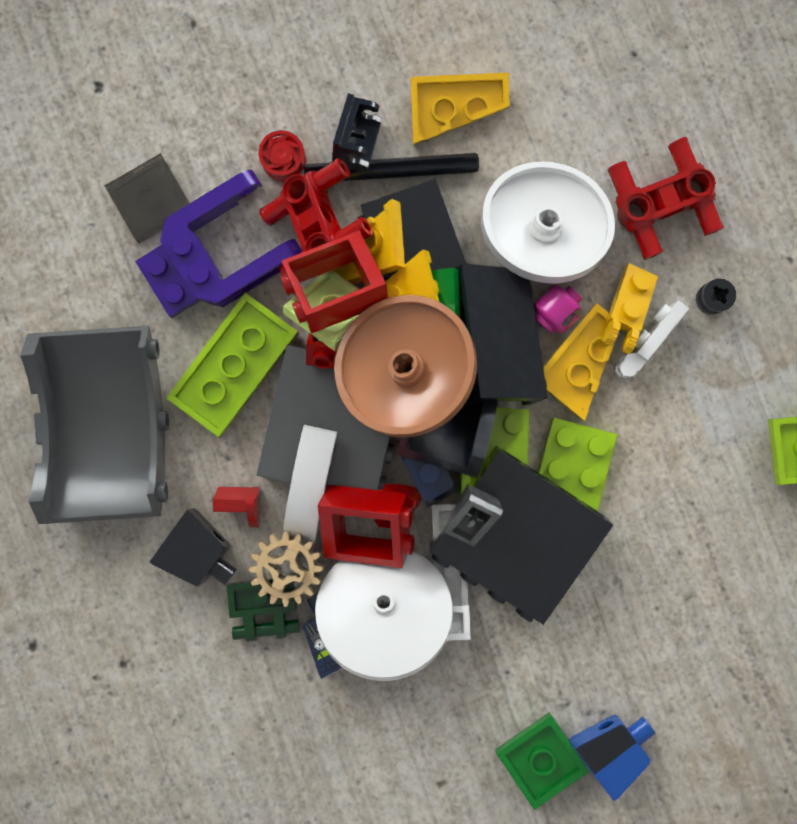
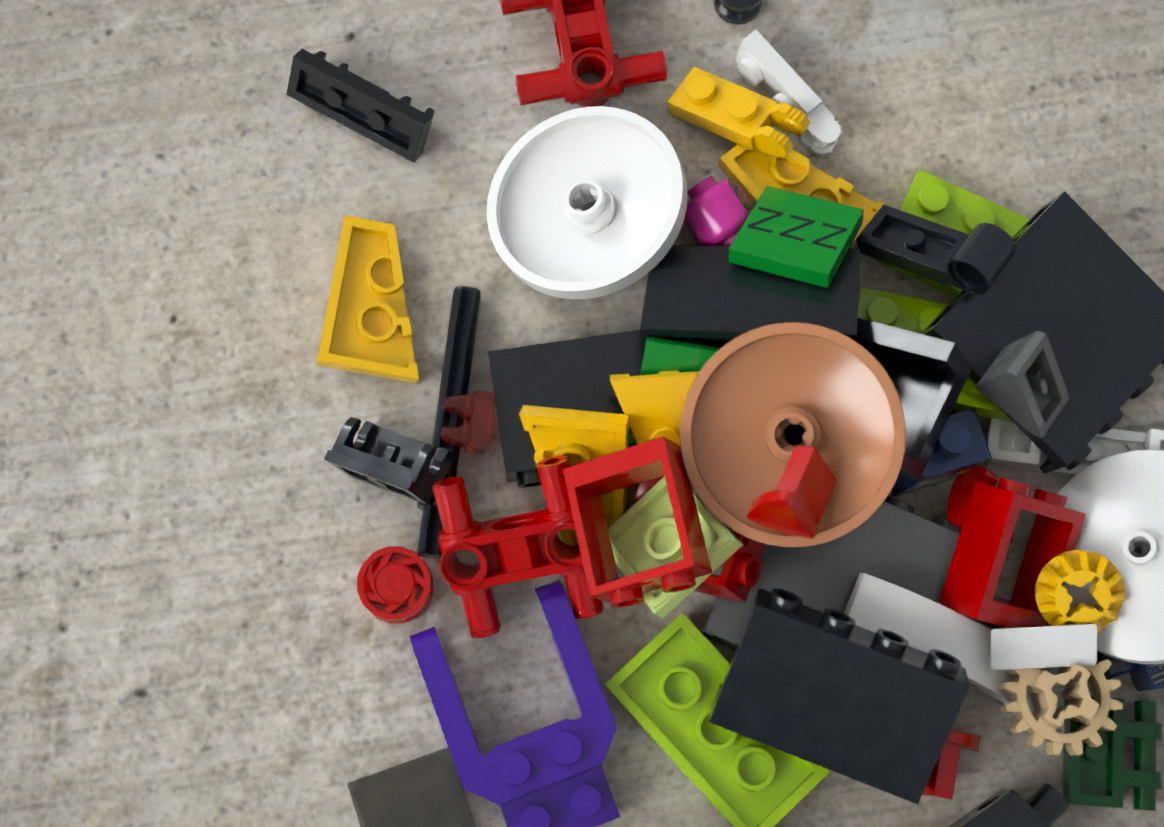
camera: 85 degrees left, 10 degrees down
(258, 428) = (840, 694): none -> black panel
(311, 551) = (1043, 647): none -> white sticker
(362, 564) = (1079, 568): none -> yellow gear
(365, 374) = (799, 496): none -> red tile
(394, 183) = (478, 412): none -> clear red tile
(547, 356) = (796, 236): none -> green tile
(556, 446) = (938, 251): none -> black plate
(586, 67) = (359, 104): none -> black plate

